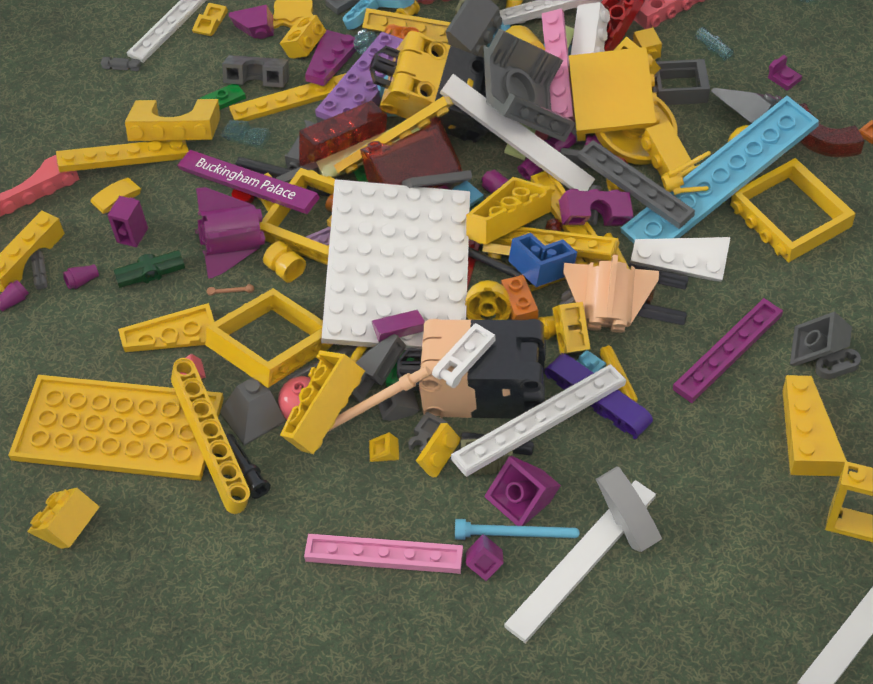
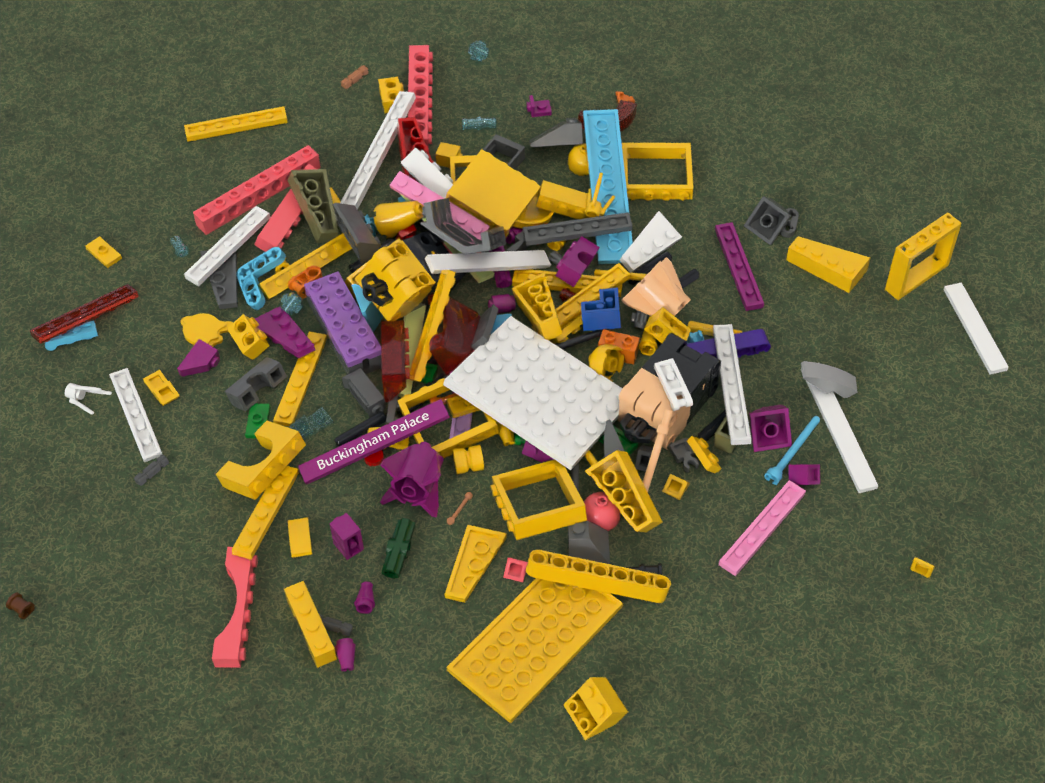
camera: 60 degrees left, 0 degrees up
(400, 324) = (596, 415): magenta slope -> none

